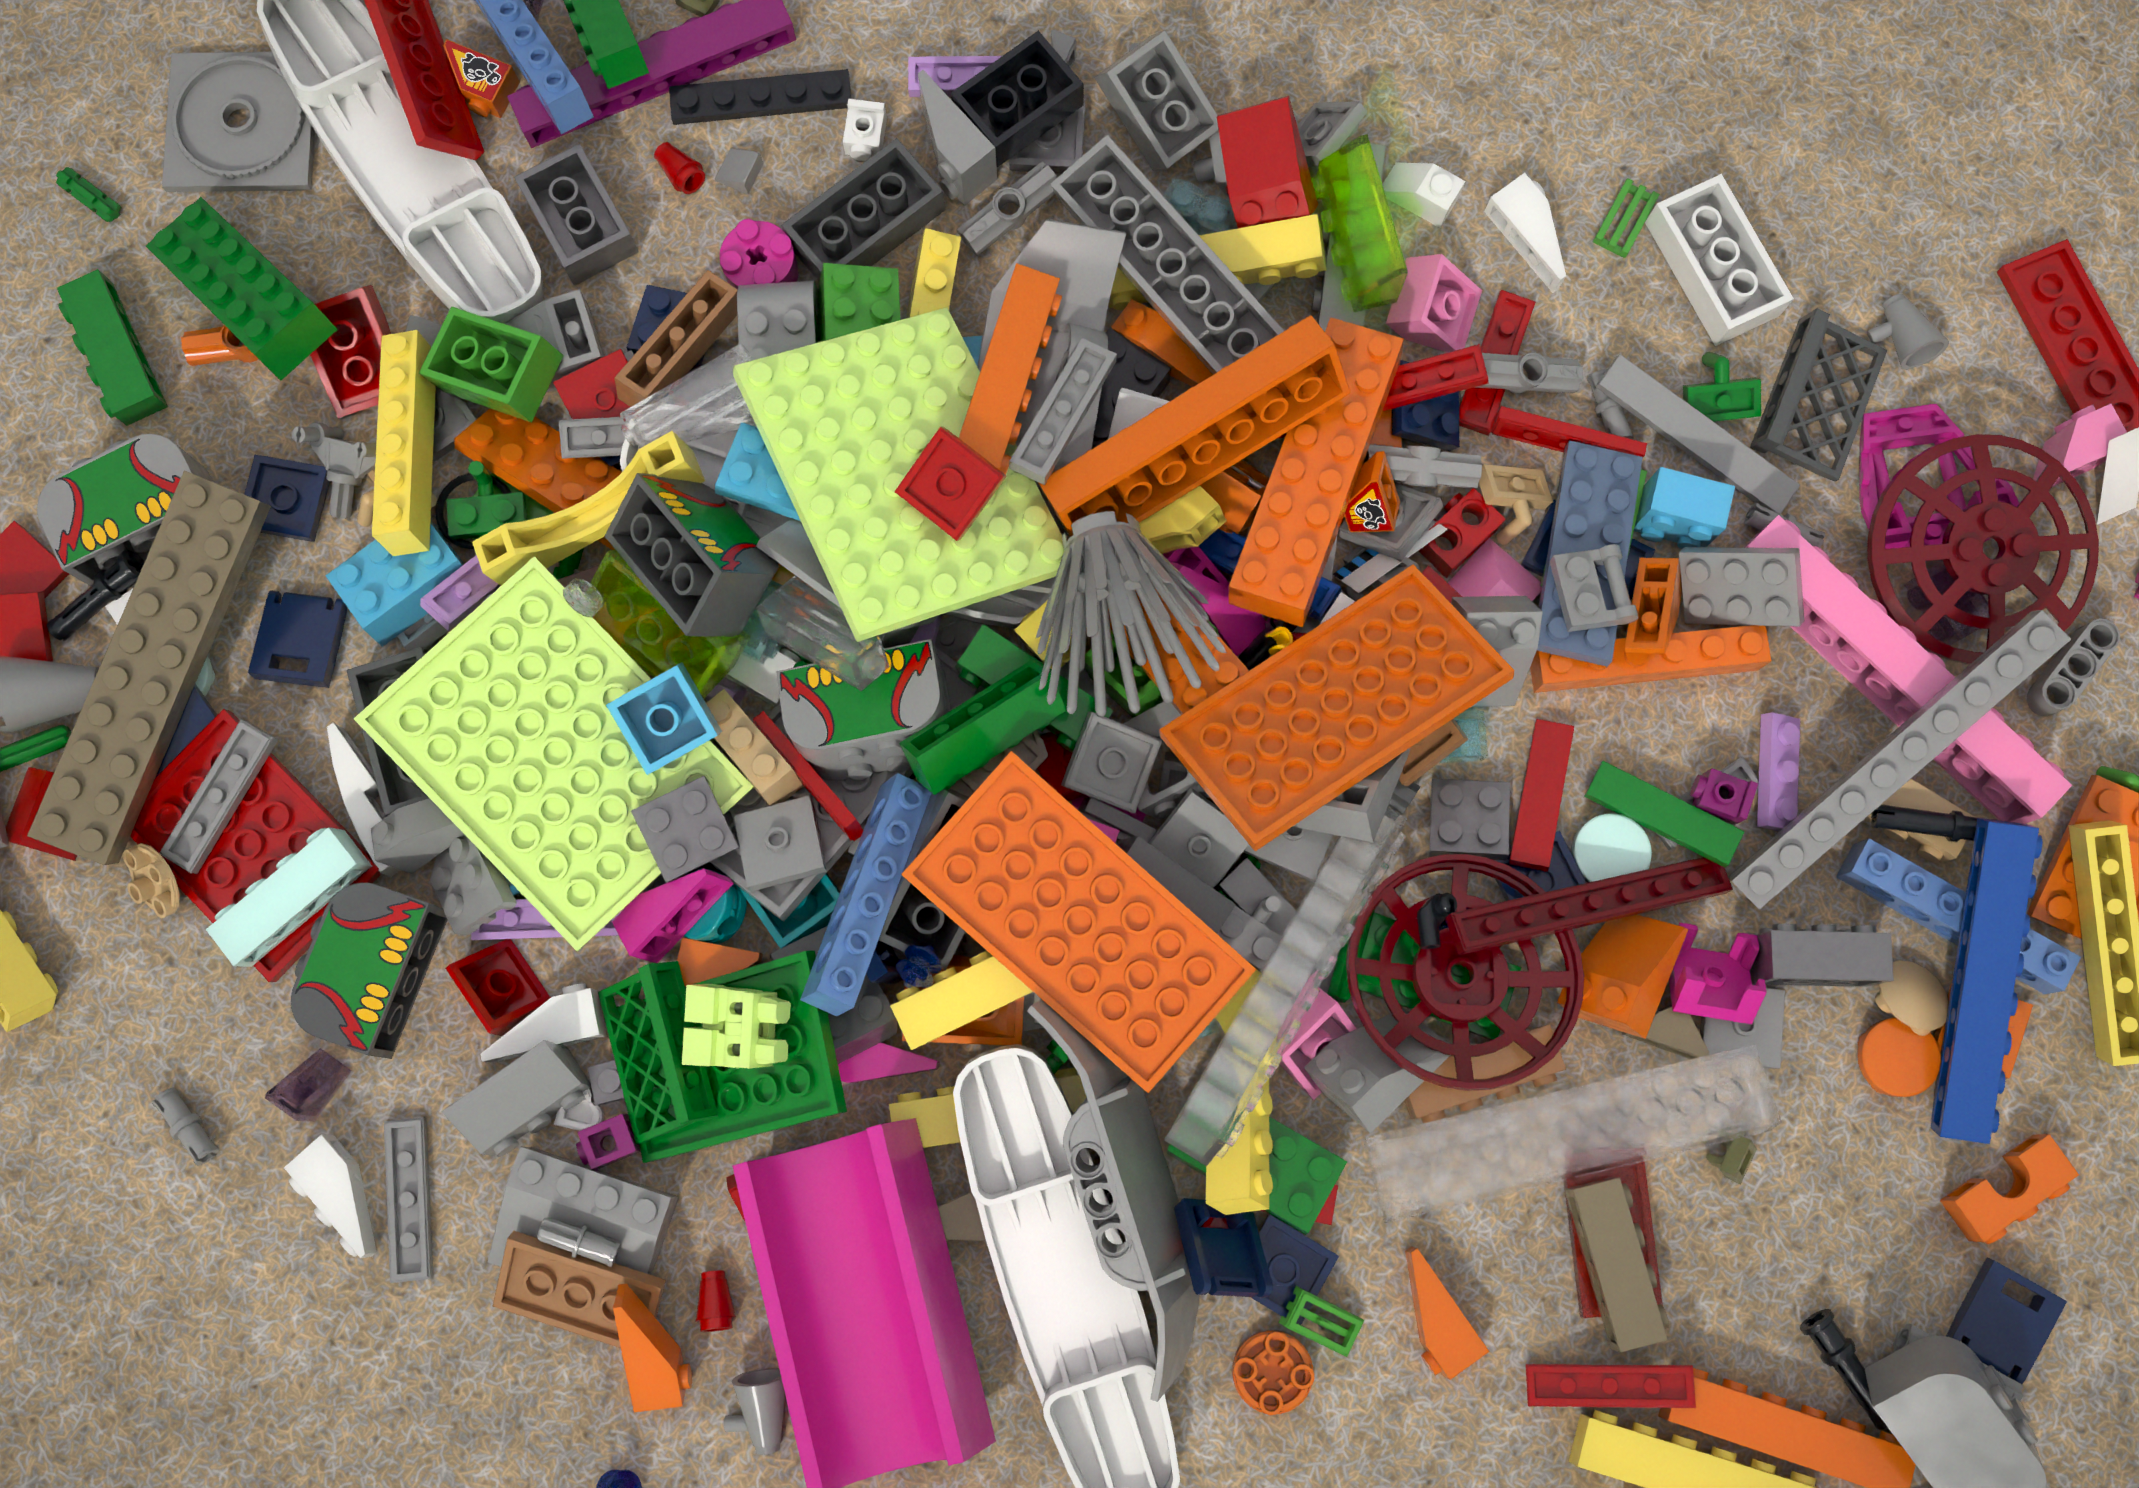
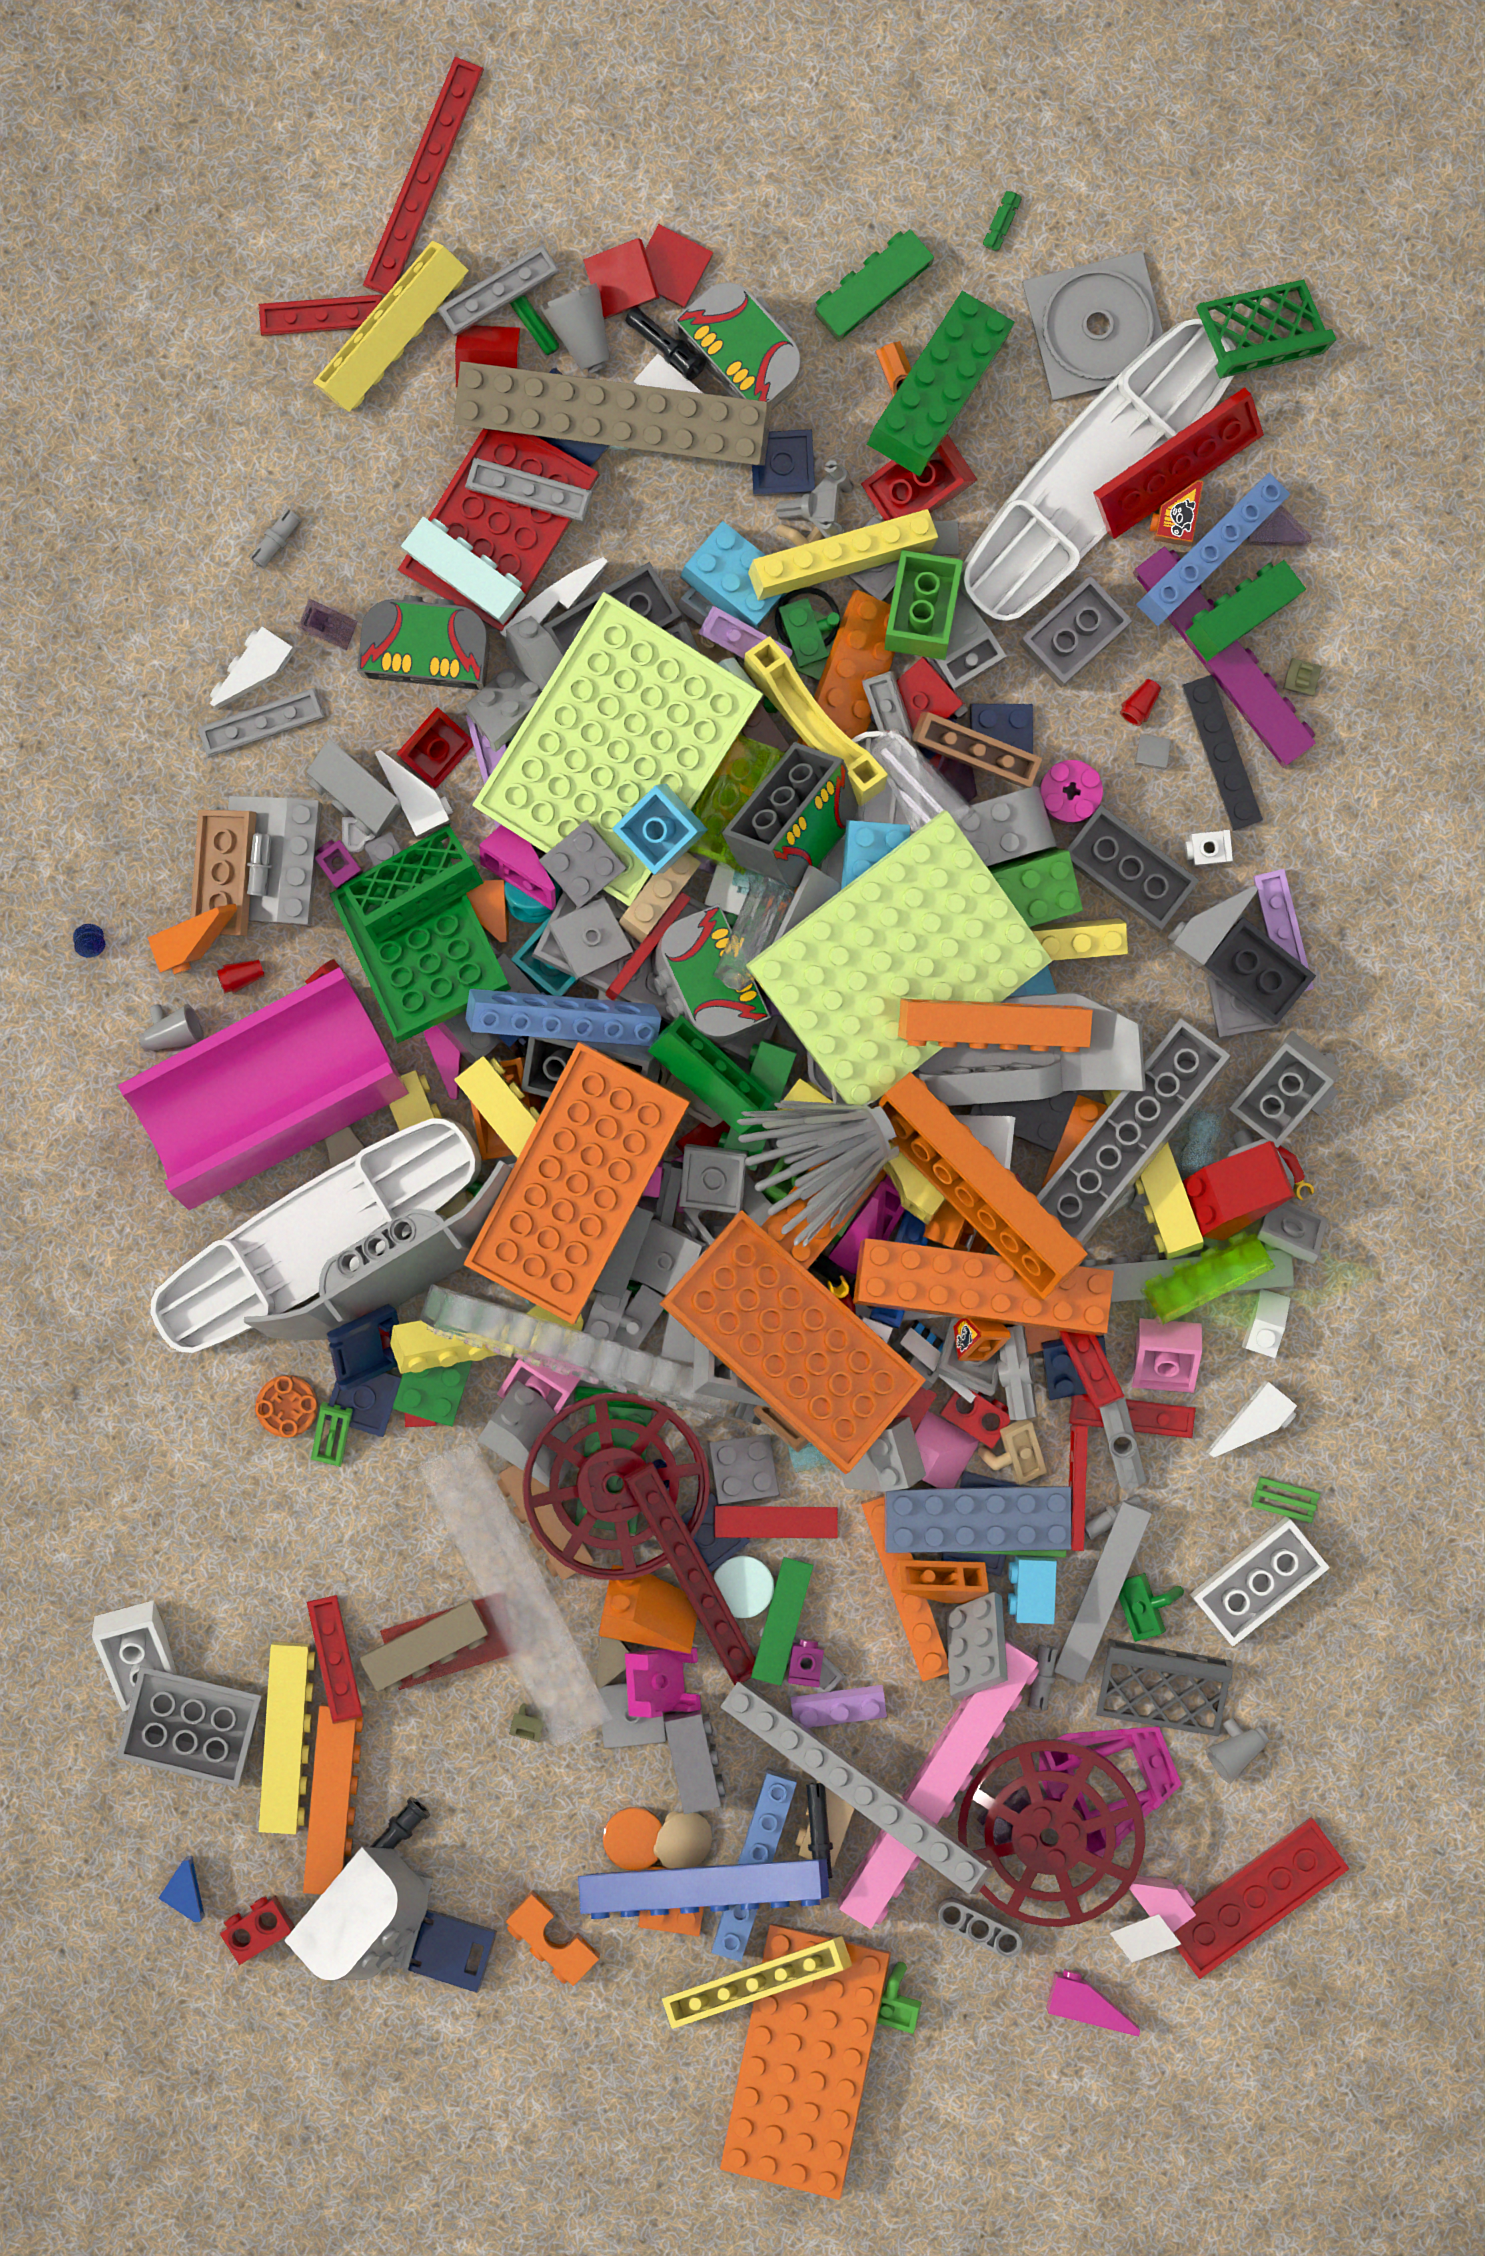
camera: 75 degrees right, 10 degrees up
(151, 880) = (452, 457): tan dish -> none
(298, 629) = (677, 508): dark blue container -> none
(583, 597) = (740, 740): clear tile -> none
(735, 1027) = (440, 942): yellowish green hips -> none
(919, 966) = (516, 1070): clear blue wheel -> none
(950, 483) = (887, 1005): red tile -> none
(992, 224) = (1152, 972): light grey piece -> none
(1062, 411) = (973, 1077): light grey plate -> none
(1064, 46) = (1317, 998): light grey slope -> none
(1431, 916) = (649, 1450): black arm -> none
(1441, 1325) = (347, 1527): orange slope -> none
(1581, 591) = (936, 1517): light grey plate -> none

